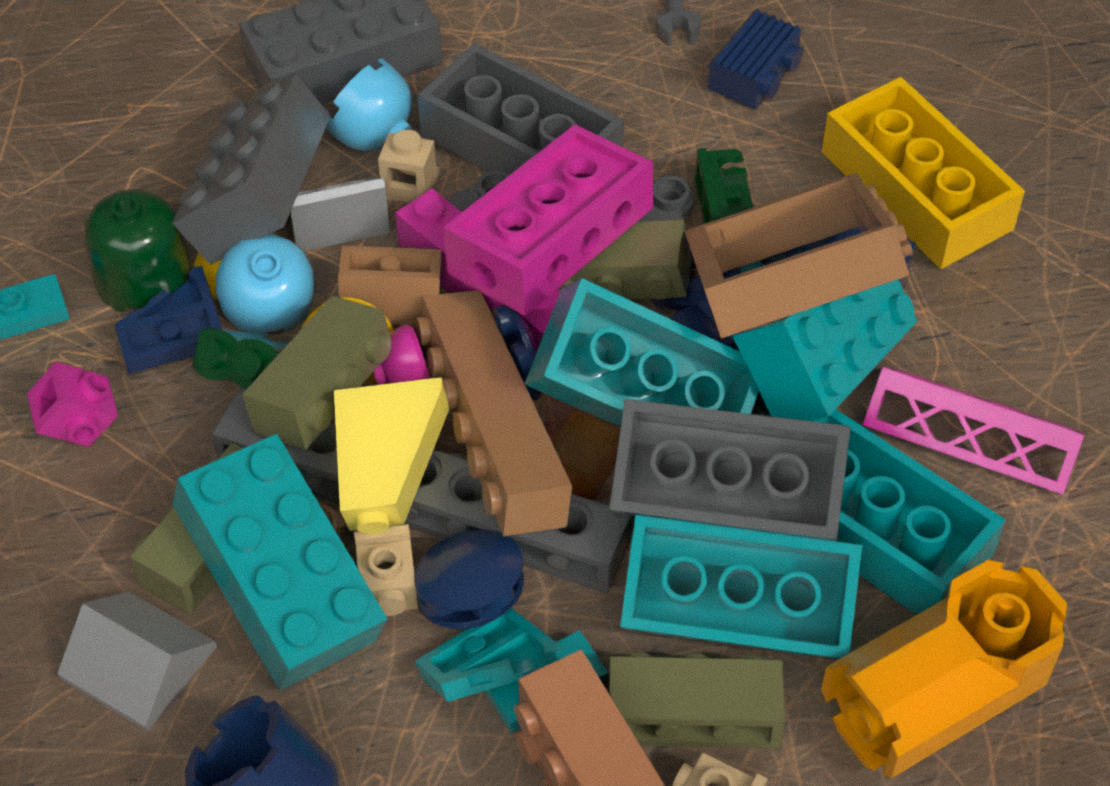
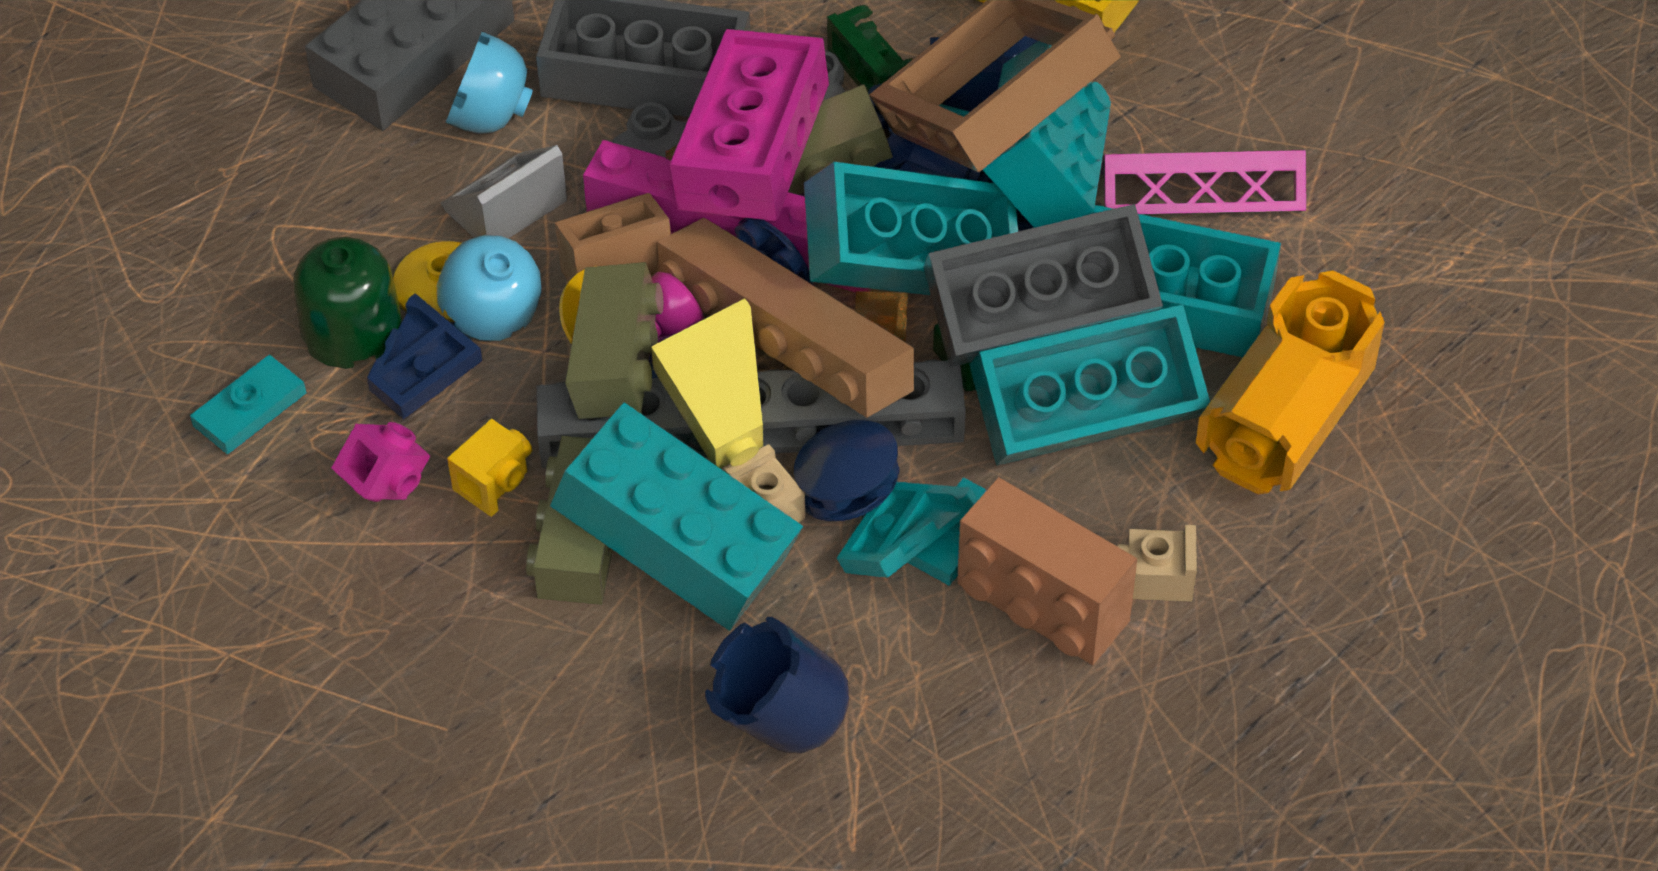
camera: 25 degrees left, 0 degrees up
(132, 656) = (579, 658): light grey slope -> none
(166, 443) = (489, 465): none -> yellow brick
(234, 355) = (522, 359): dark green brick -> none
(252, 168) = (422, 180): dark grey brick -> none
(411, 156) = (556, 118): tan brick -> none
(700, 700) = (1112, 485): olive brick -> none

